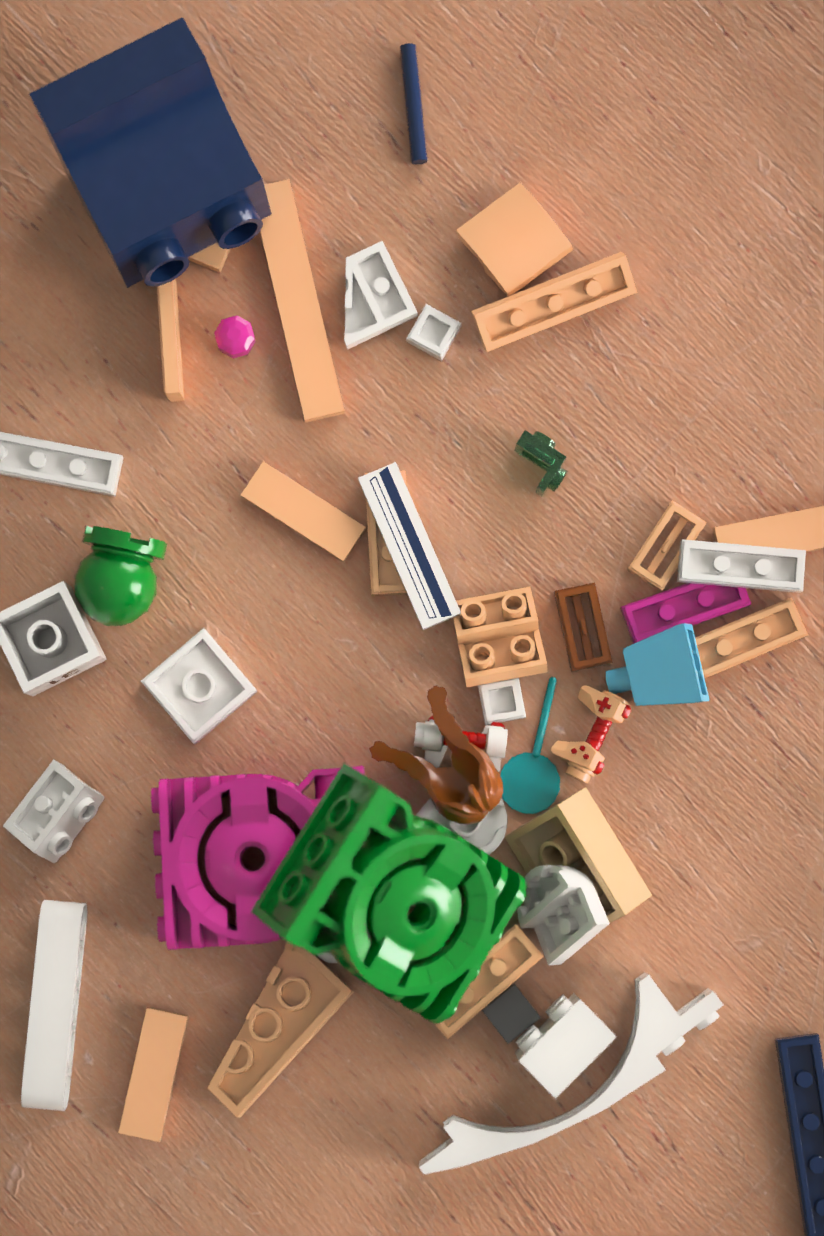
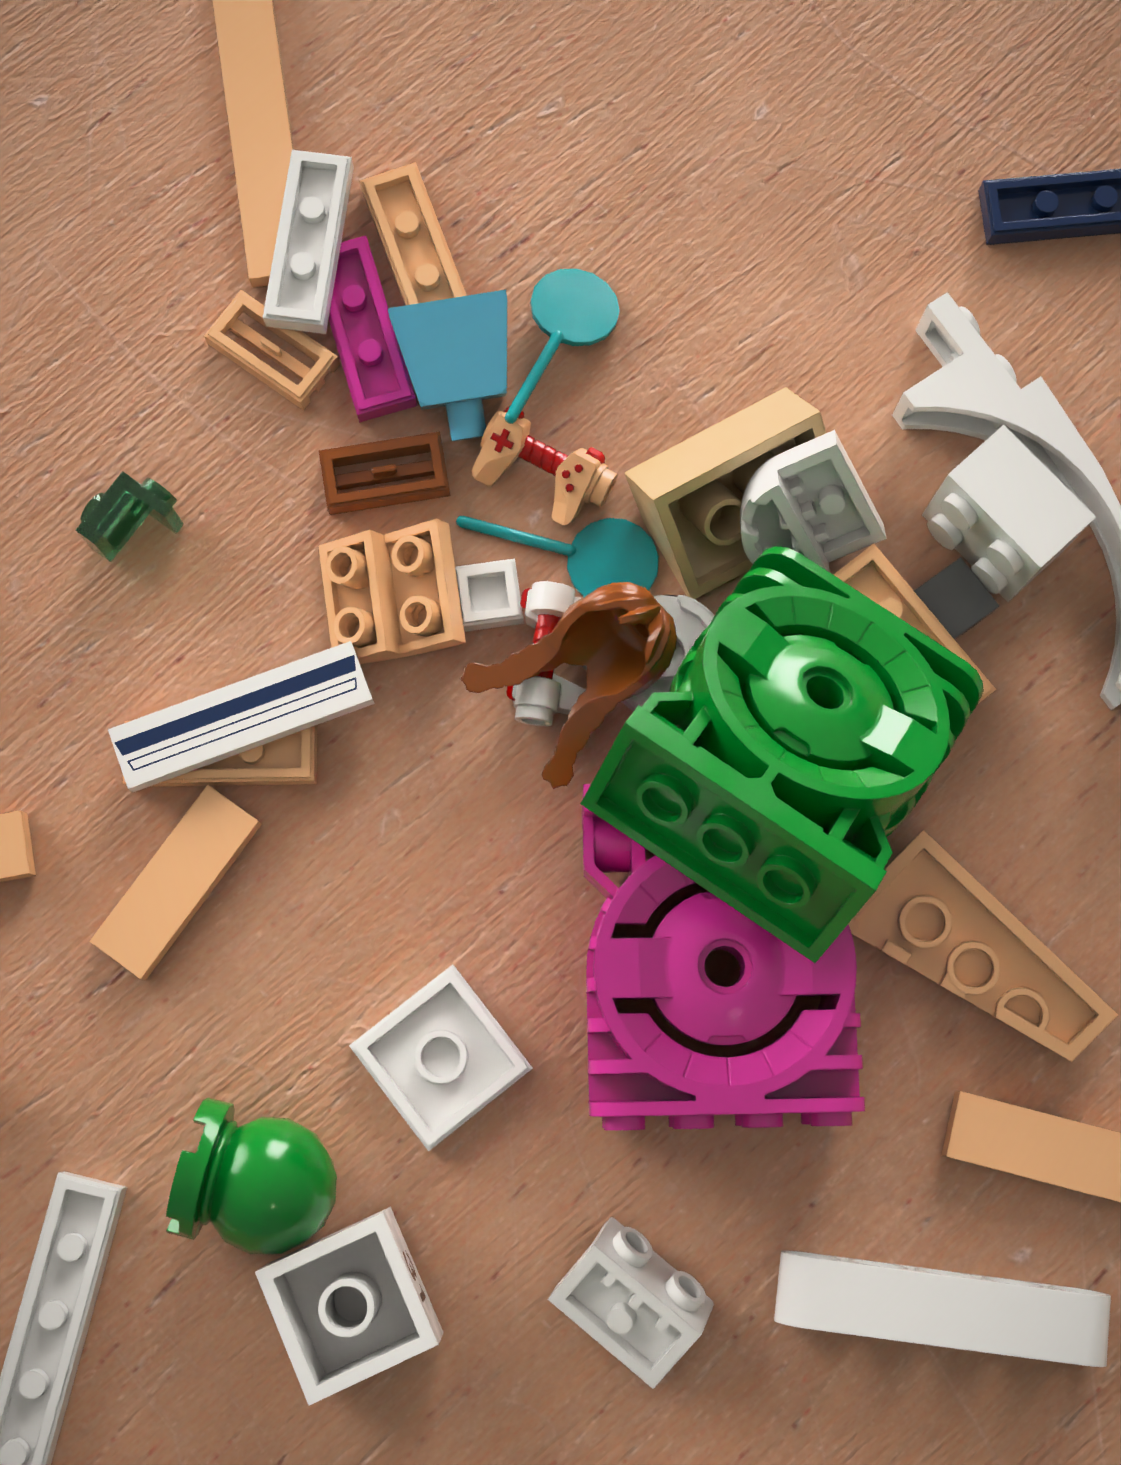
camera: 90 degrees left, 5 degrees down
(705, 749) = (571, 310): none -> teal piece

